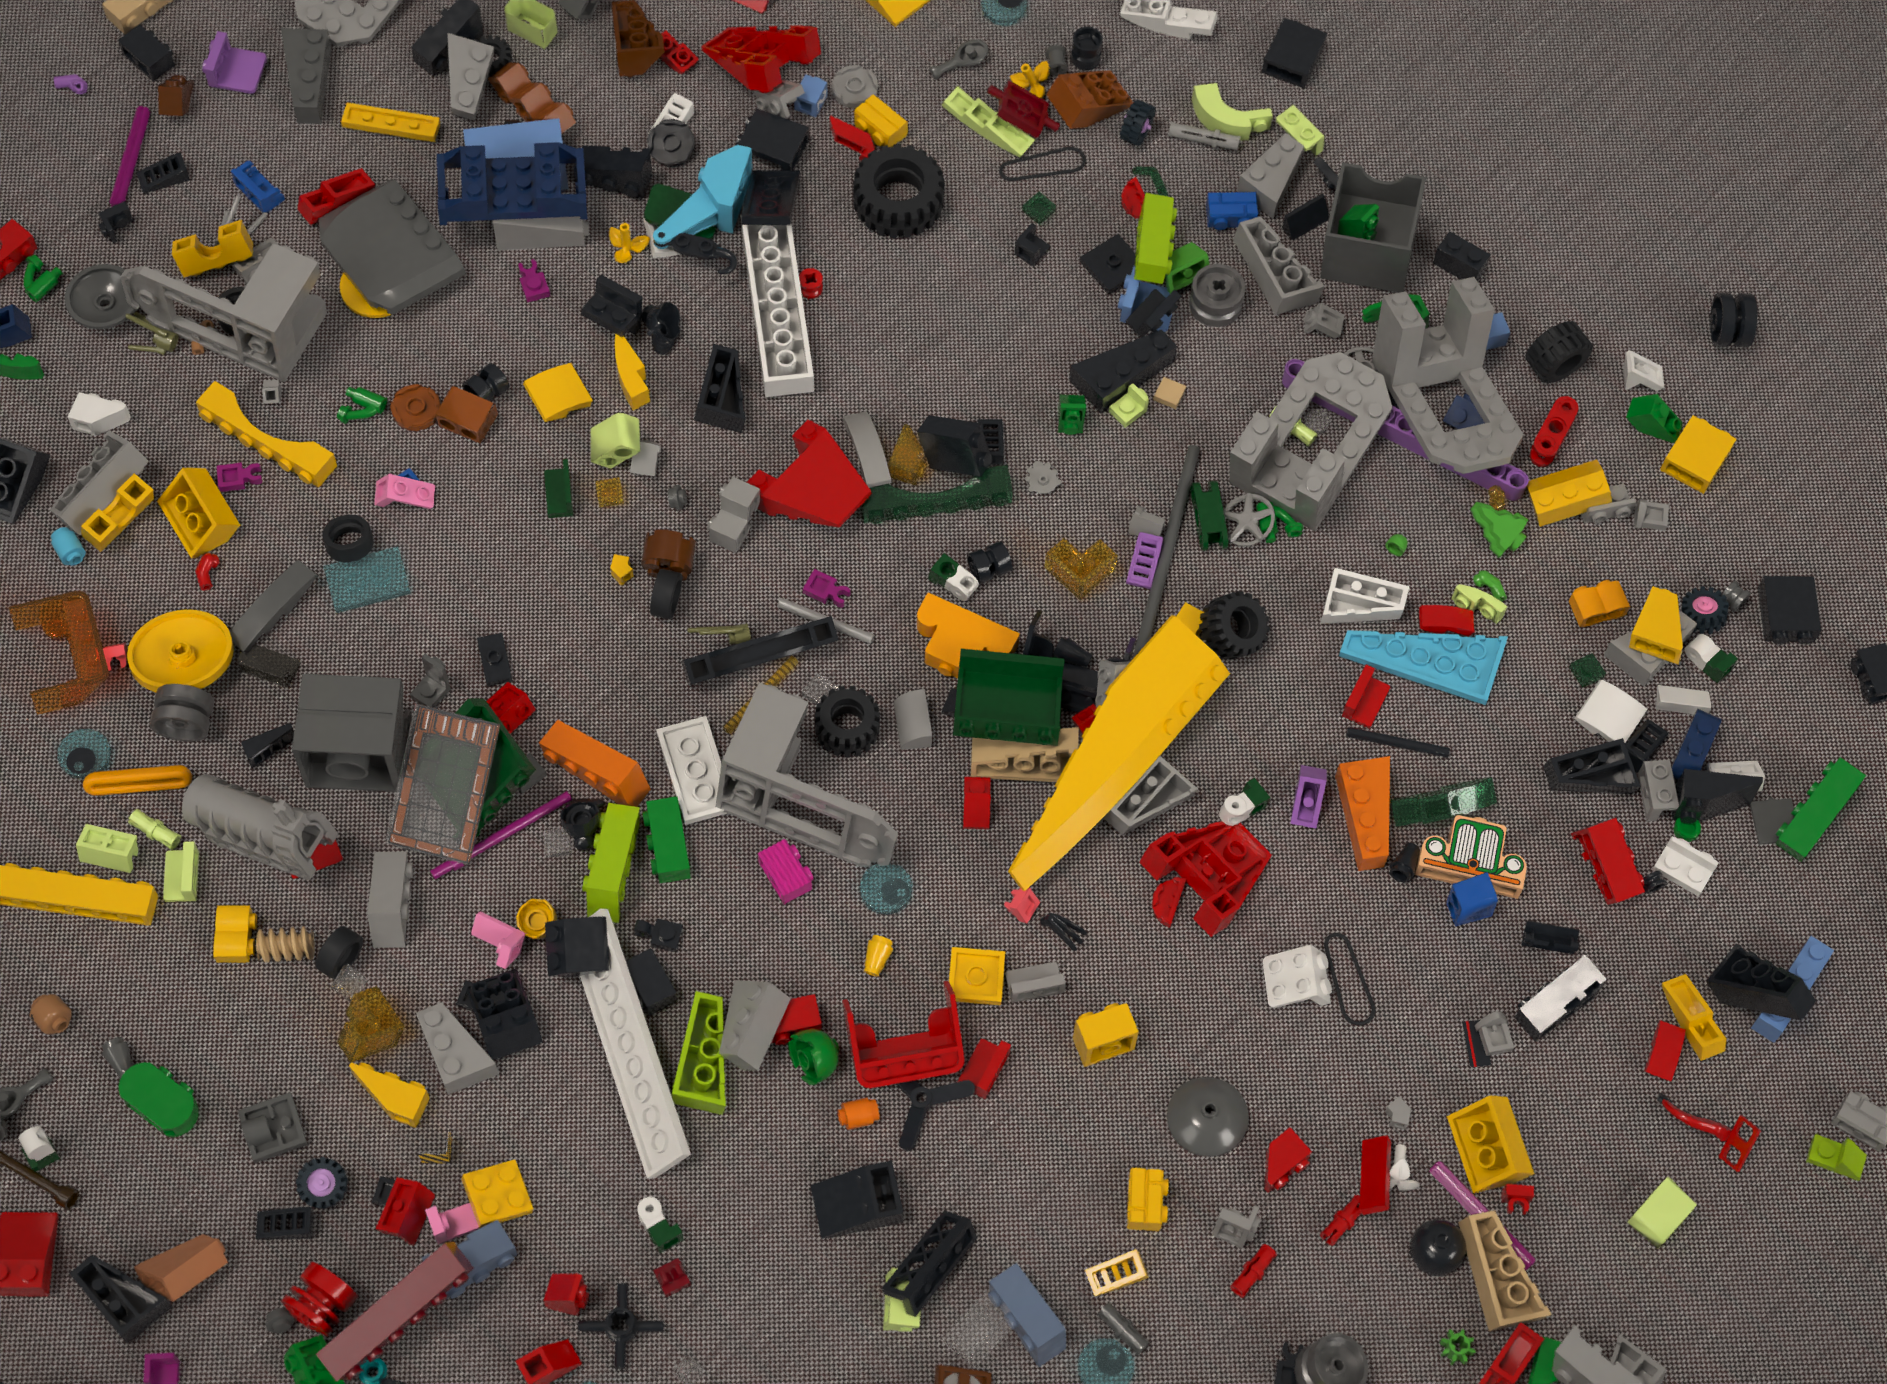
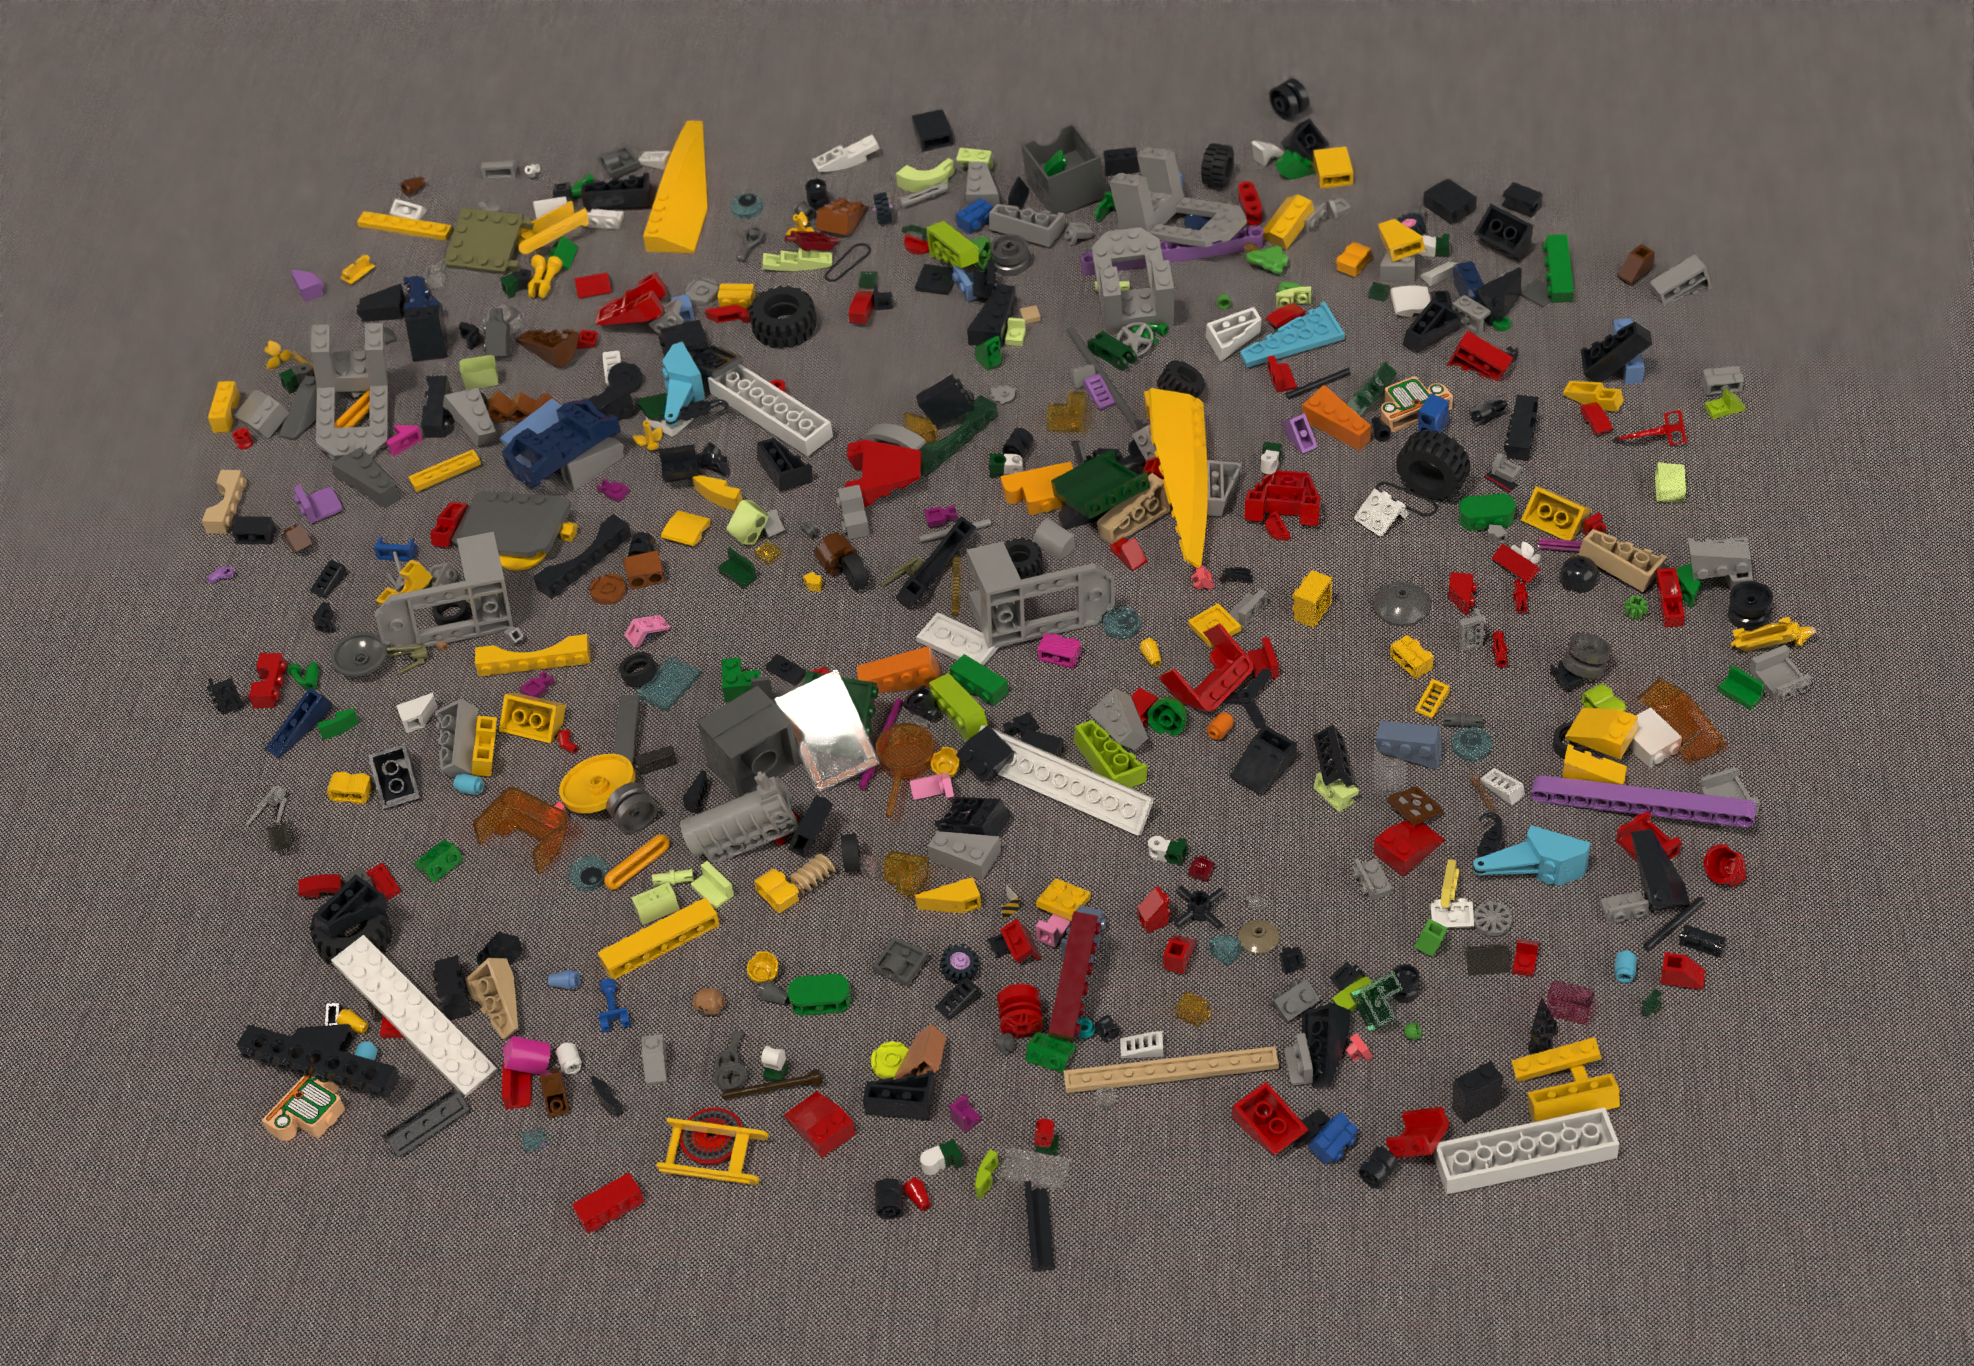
camera: 30 degrees left, 15 degrees down
(130, 155) = (297, 584): magenta axle -> none
(133, 1019) = (762, 967): none -> yellow hair
(156, 1235) = (888, 1059): none -> neon yellow tile
(329, 885) = (810, 826): none -> black brick
(371, 401) = (577, 602): green plant -> none
(388, 50) = (405, 437): none -> dark pink slope
(389, 899) = (854, 811): light grey wedge -> none
(428, 632) = (735, 680): none -> green brick
(441, 300) = (568, 531): none -> yellow piece
(473, 341) = (556, 578): none -> black arch
(505, 871) = (904, 754): none -> clear orange piece
(996, 239) = (861, 307): none -> red slope
(1331, 177) = (1012, 170): black plate -> none
(1397, 972) = (1444, 453): none -> black tyre
(1414, 1076) = (1482, 510): none -> green brick
(1685, 865) = (1519, 336): white bracket -> none
(1700, 392) = (1305, 139): none -> black slope
(1802, 709) = (1505, 231): none -> black slope

